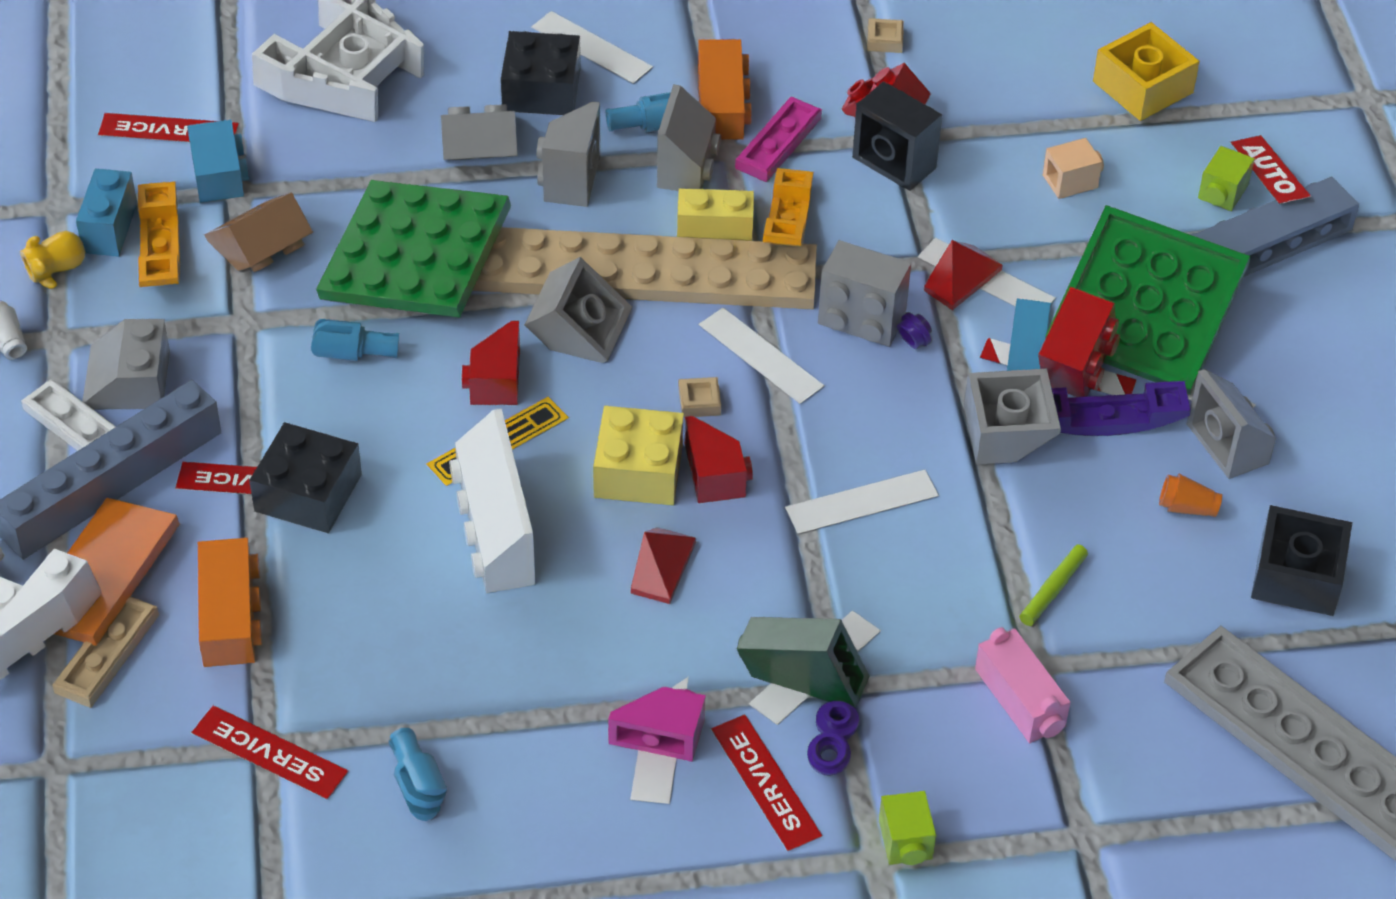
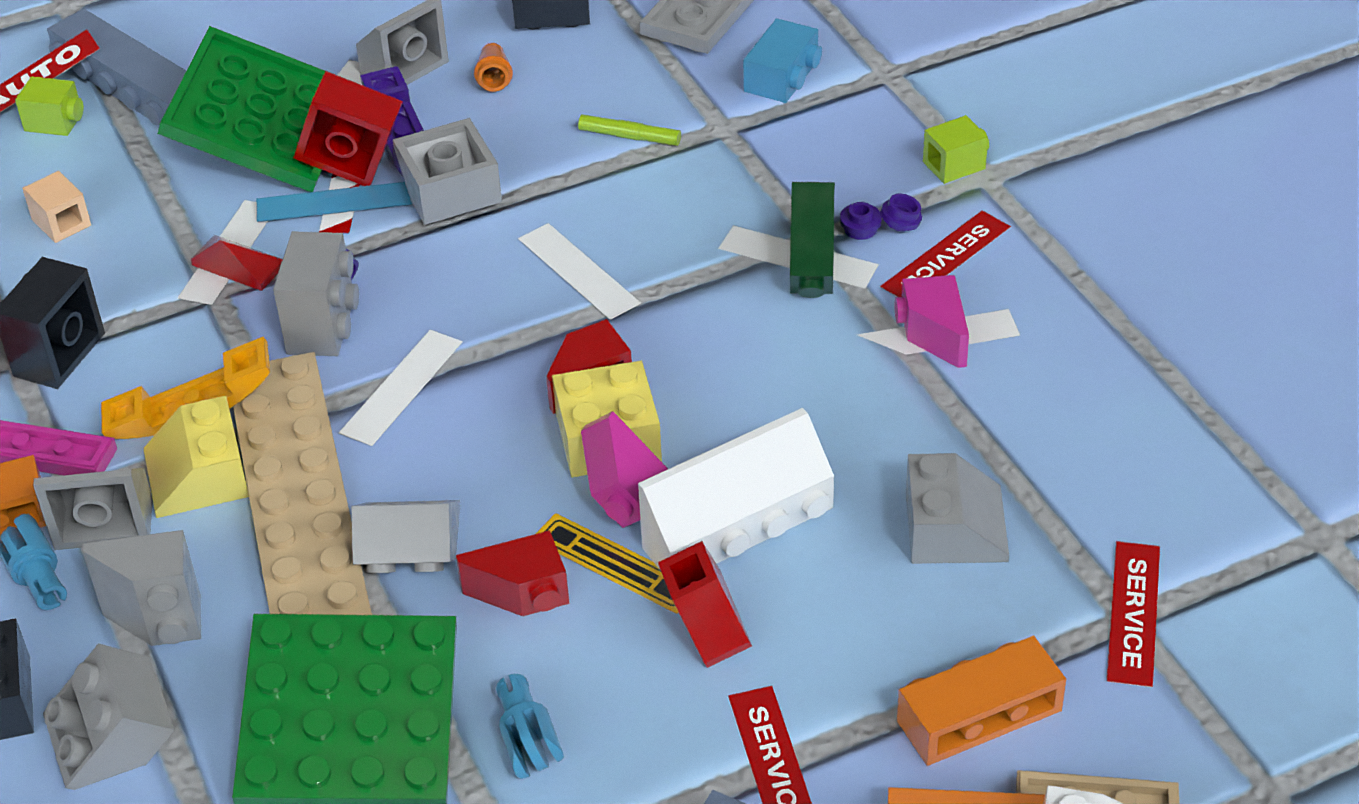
camera: 105 degrees left, 5 degrees down
(305, 477) = (768, 687): black brick -> none
(405, 459) = (704, 604): none -> red slope
(417, 775) = (1100, 469): dark azure arm -> none
(422, 652) = (953, 512): none -> light grey slope
(557, 439) = (616, 465): none -> dark pink slope
(661, 564) = (730, 382): red slope -> none
(699, 397) = (488, 411): tan tile -> none
(1022, 685) = (764, 115): bright pink brick -> none
(1115, 729) = (781, 60): none -> dark azure brick

